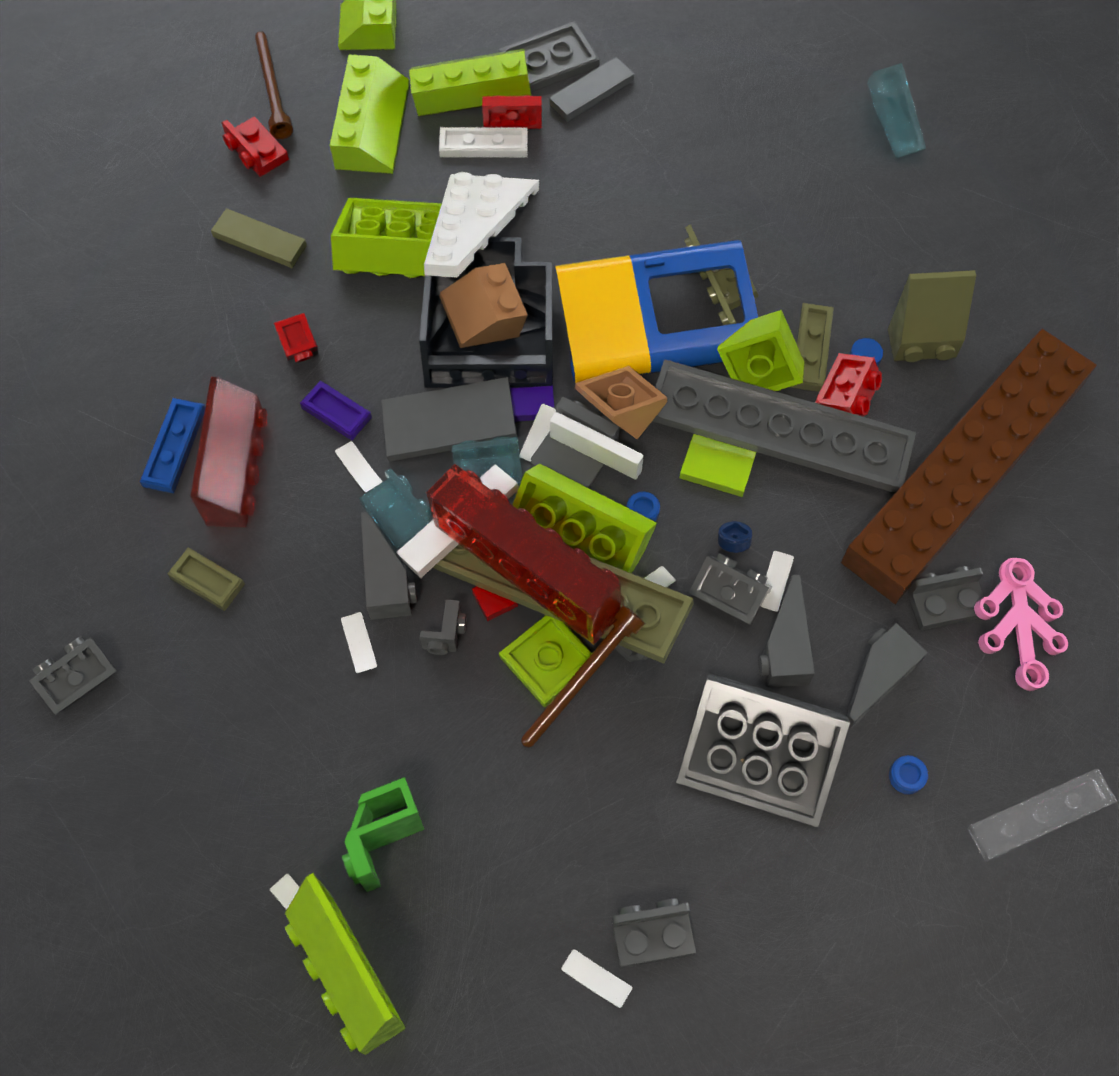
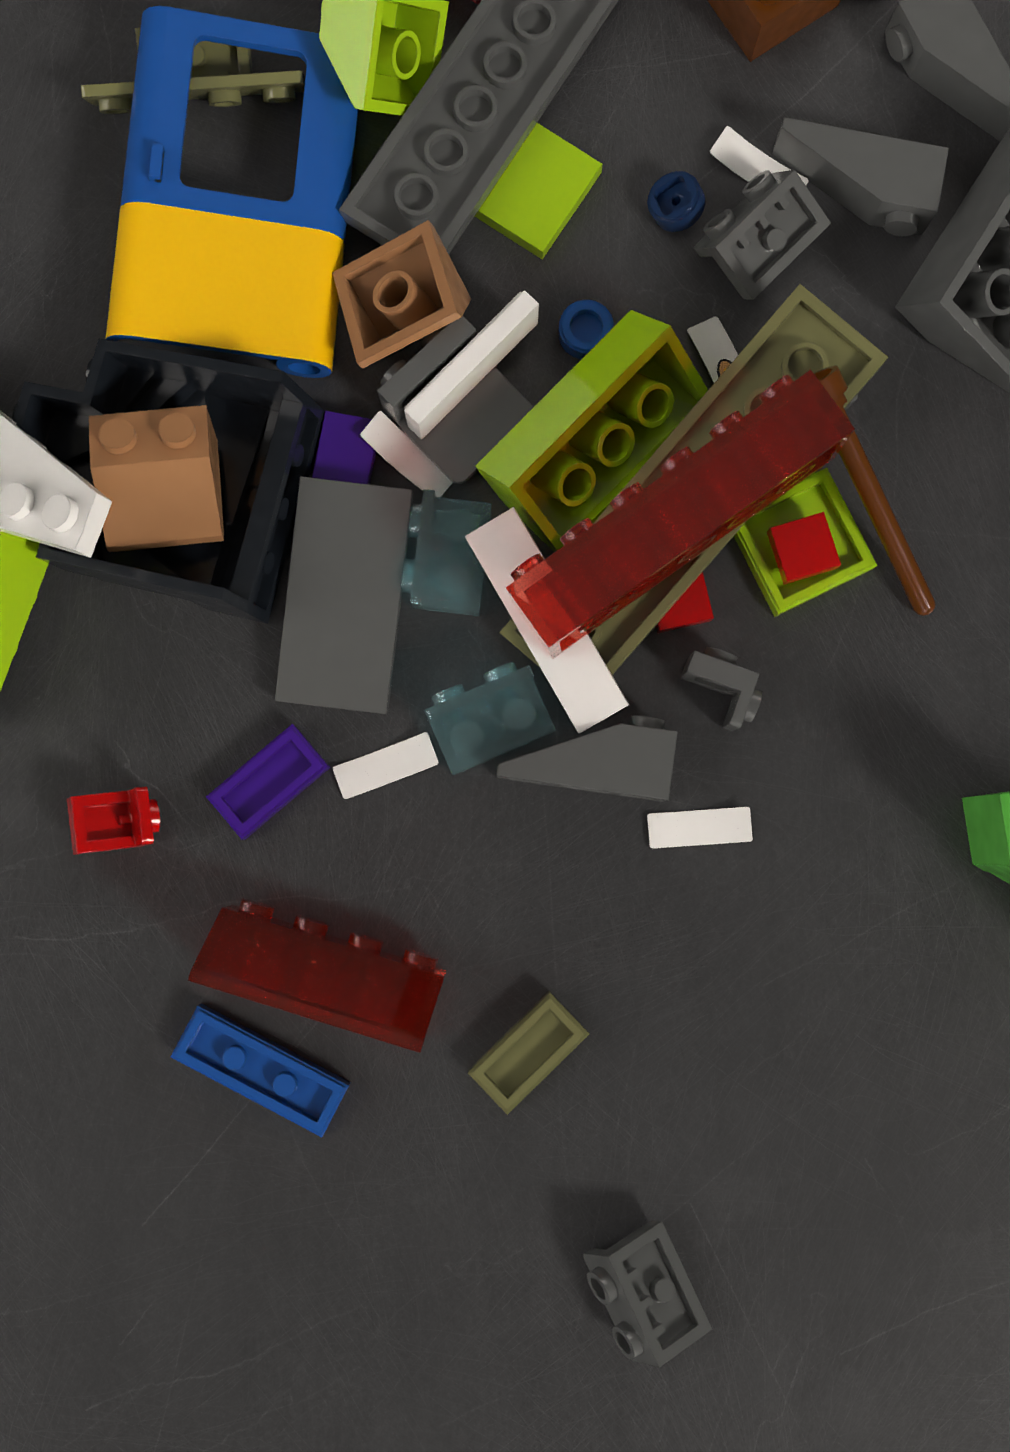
camera: 75 degrees left, 20 degrees up
(540, 653) = (803, 548): none -> red tile

